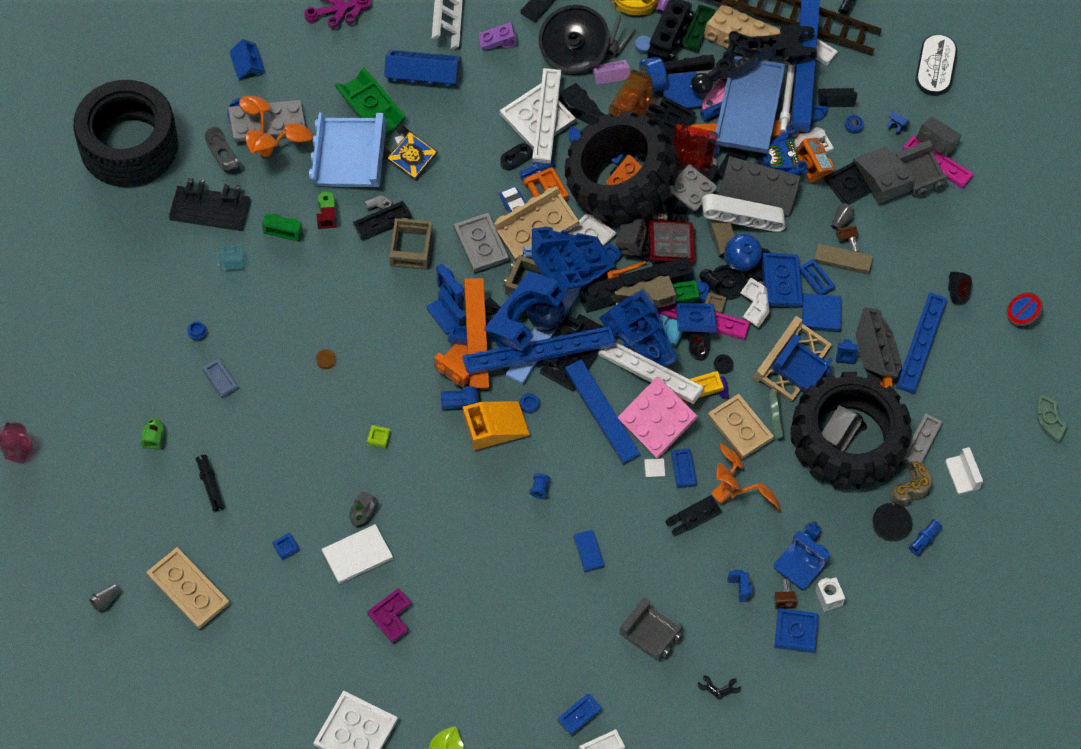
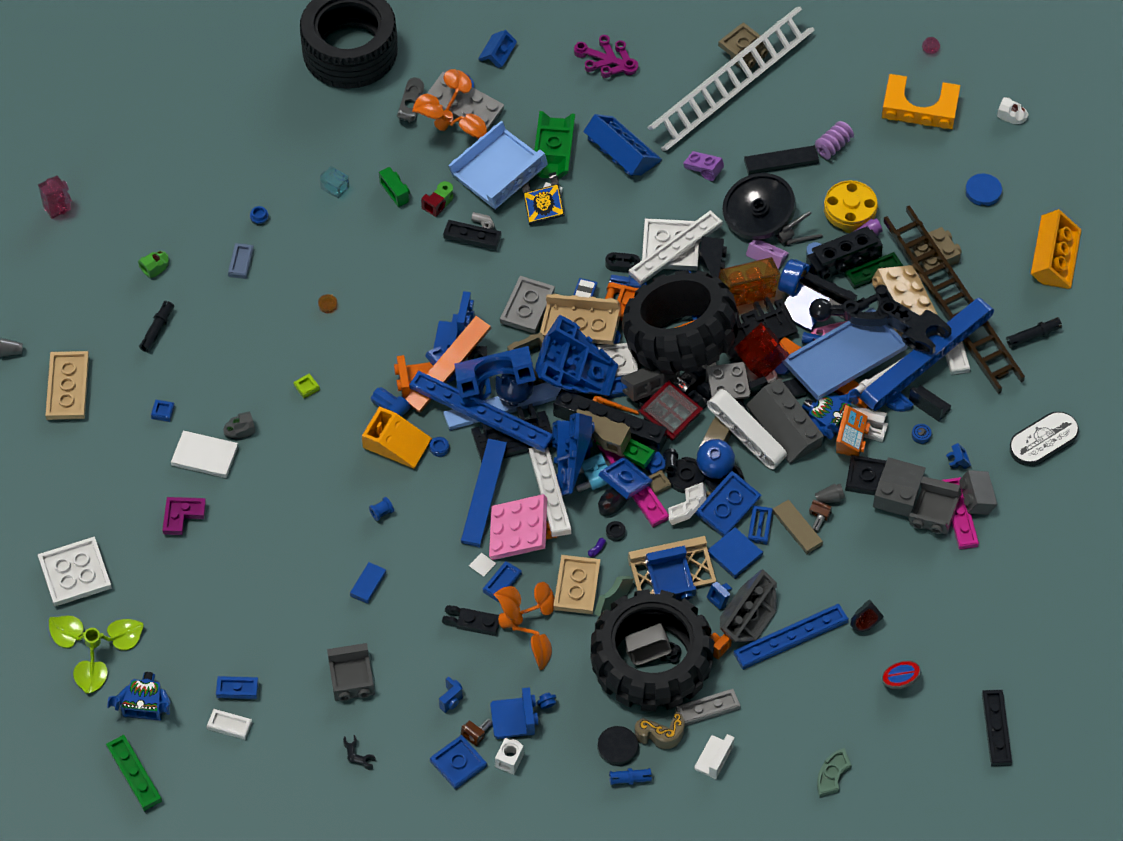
camera: 45 degrees right, 5 degrees down
(212, 209) = (360, 139): black hinge -> none
(410, 259) = (464, 281): dark tan window -> none
(710, 382) = (583, 534): yellow plate -> none

